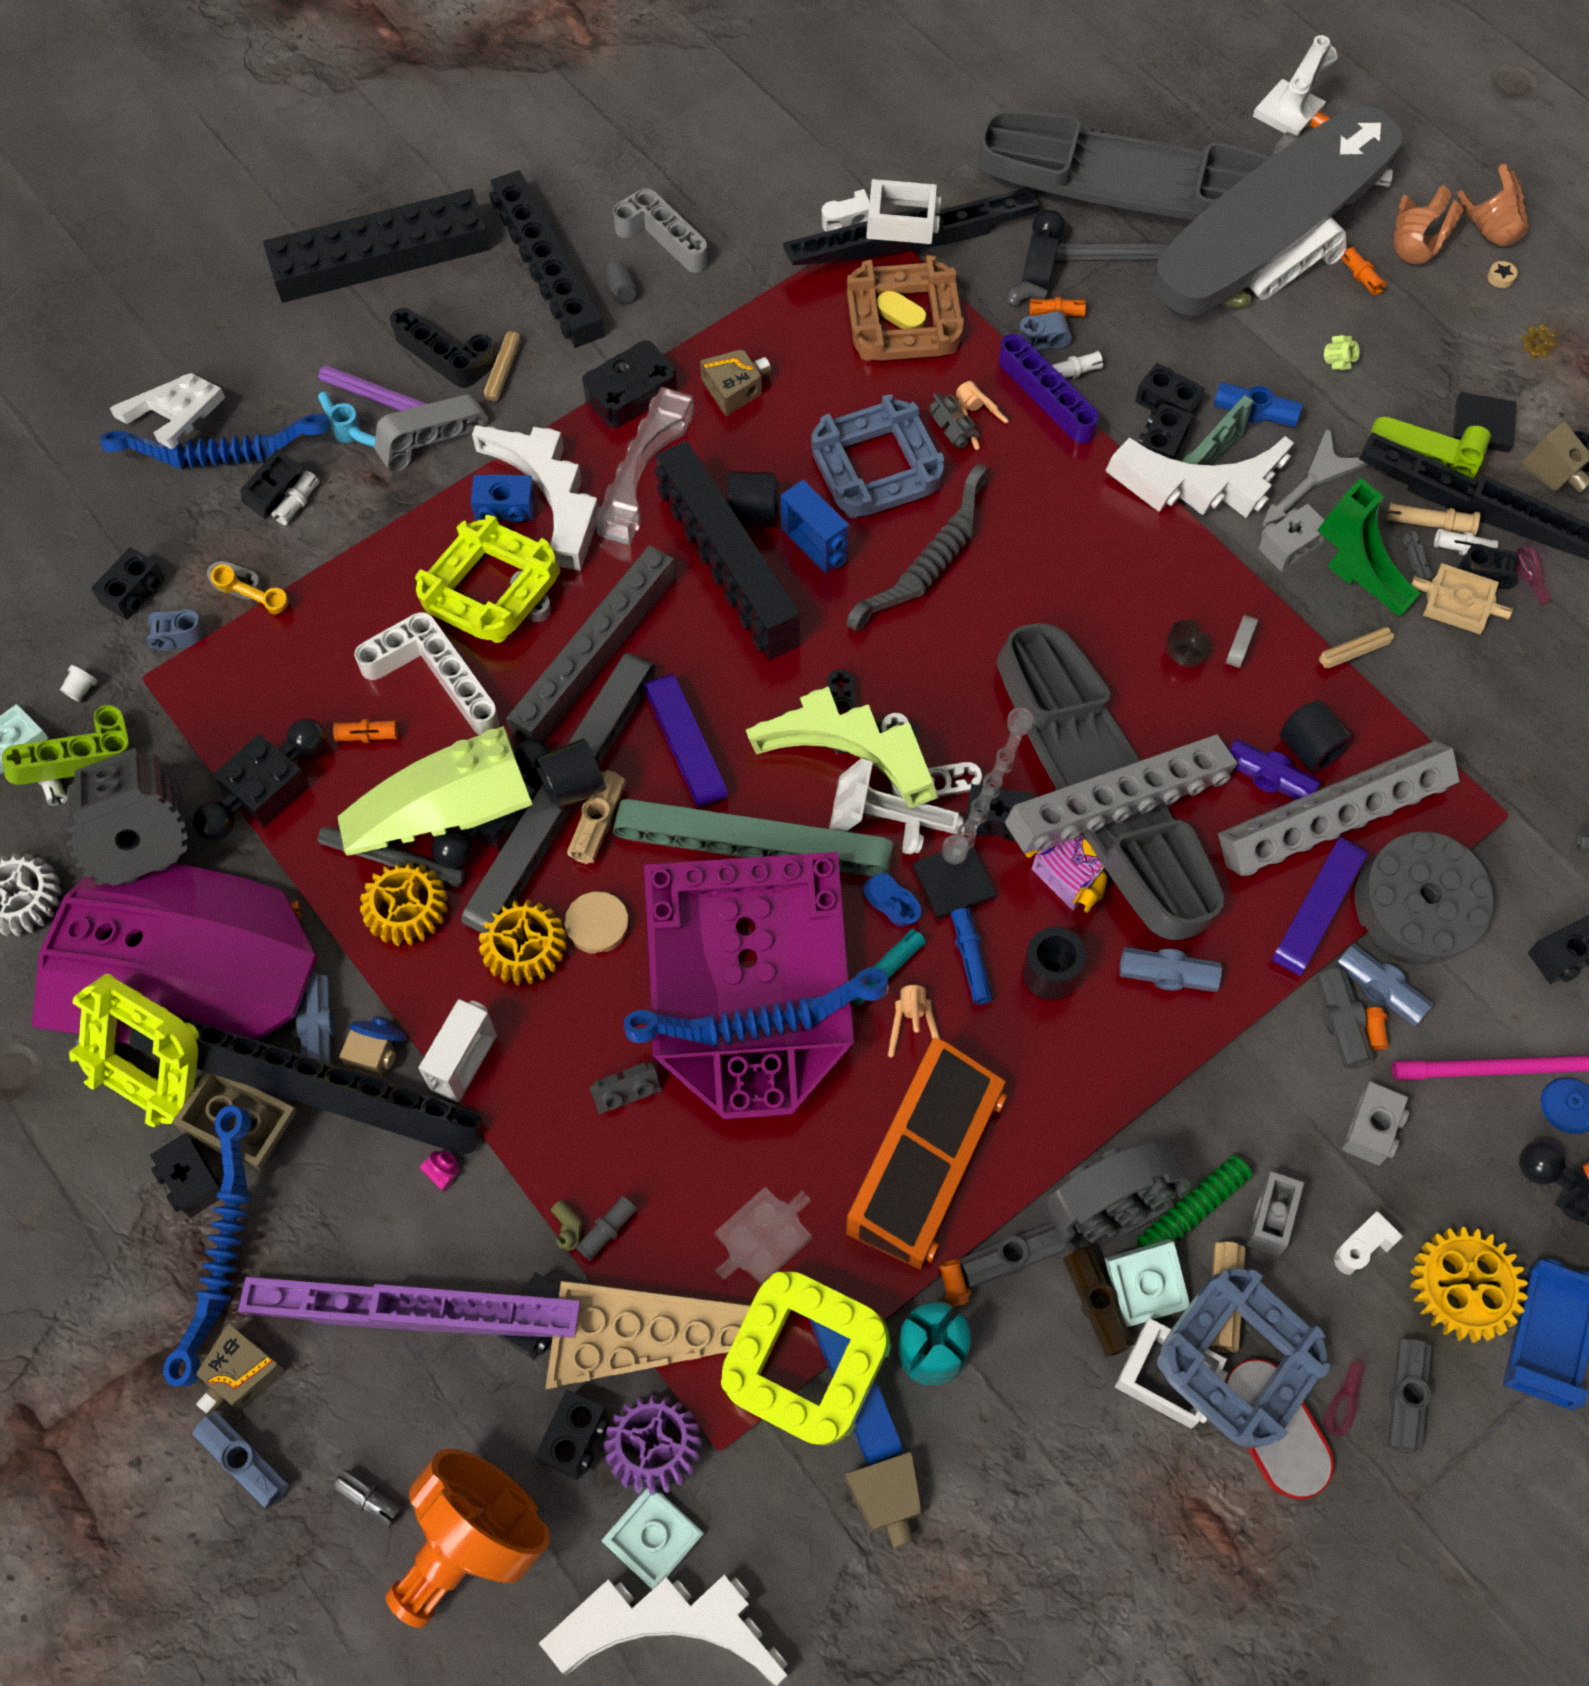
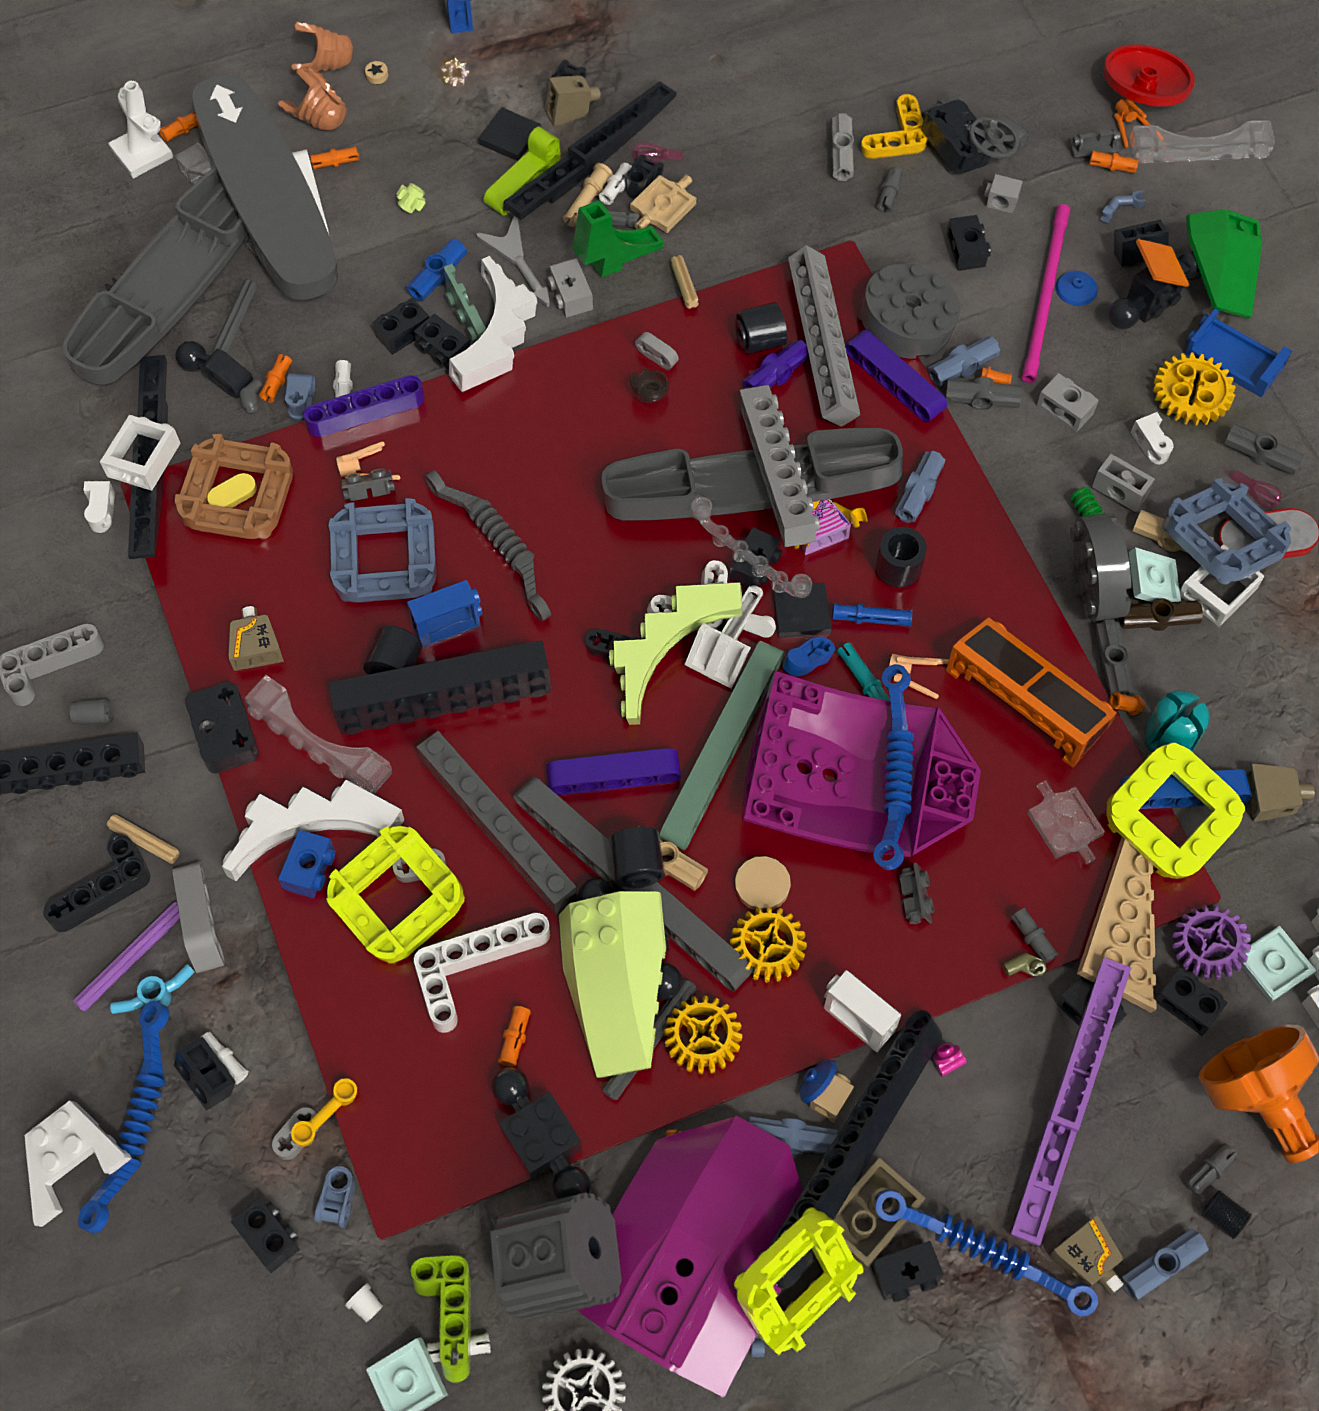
camera: 75 degrees left, 0 degrees up
(312, 1523) = (1226, 1214): none -> black piece

